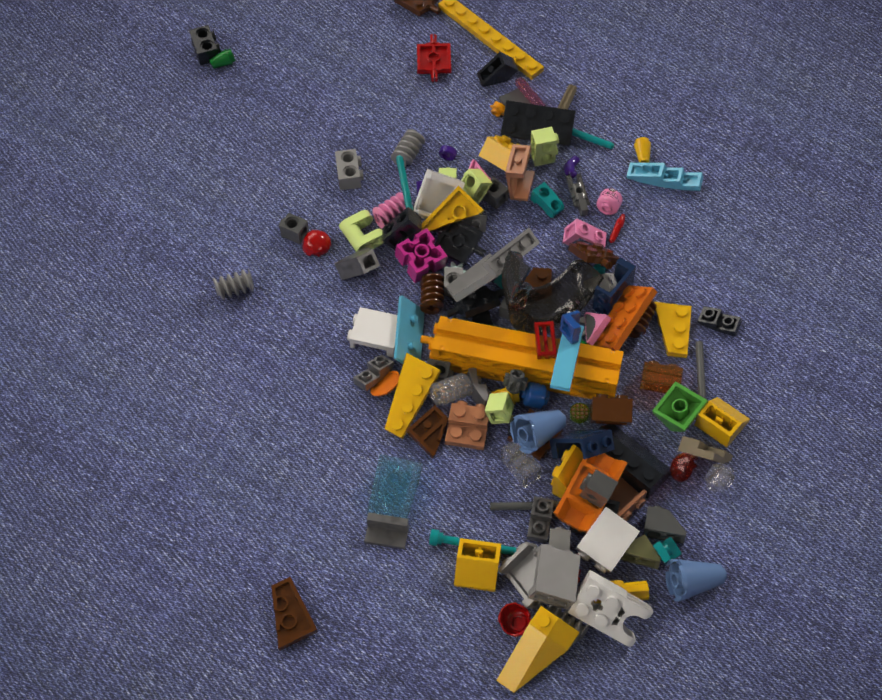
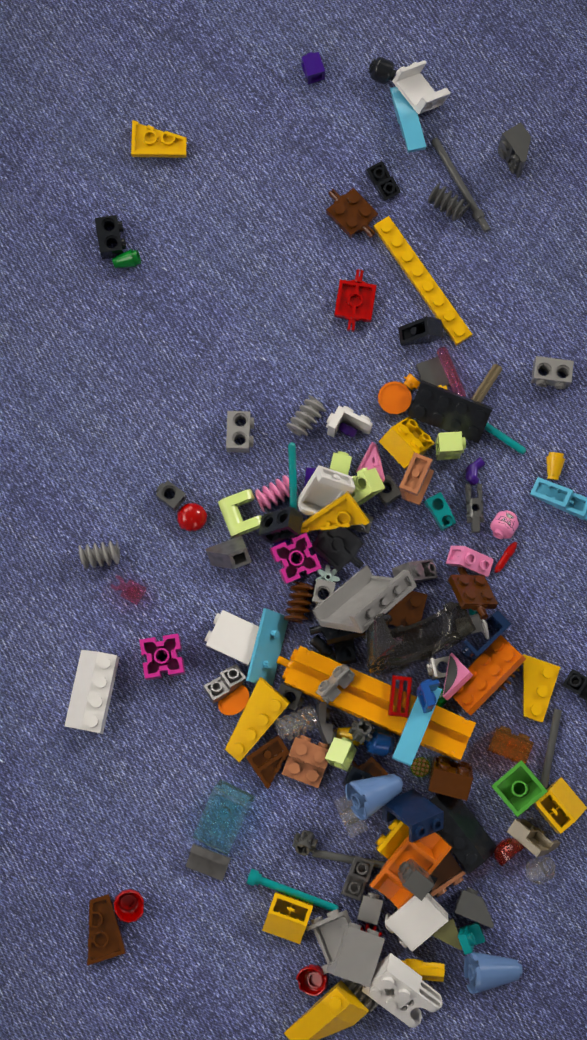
camera: 10 degrees right, 20 degrees up
(244, 400) = (92, 691): none -> white slope
(268, 311) = (131, 591): none -> clear pink plate
(308, 357) = (155, 667): none -> dark pink brick
(312, 582) = (129, 905): none -> red hair
(448, 136) = (346, 415): none -> white bracket
(476, 343) = (340, 676): none -> light grey hinge
(481, 501) = (305, 842): none -> dark grey gear
(485, 122) = (394, 397): none -> orange piece
(541, 253) = (419, 570): none -> flat silver slope
(622, 82) = (552, 366): none -> light grey brick

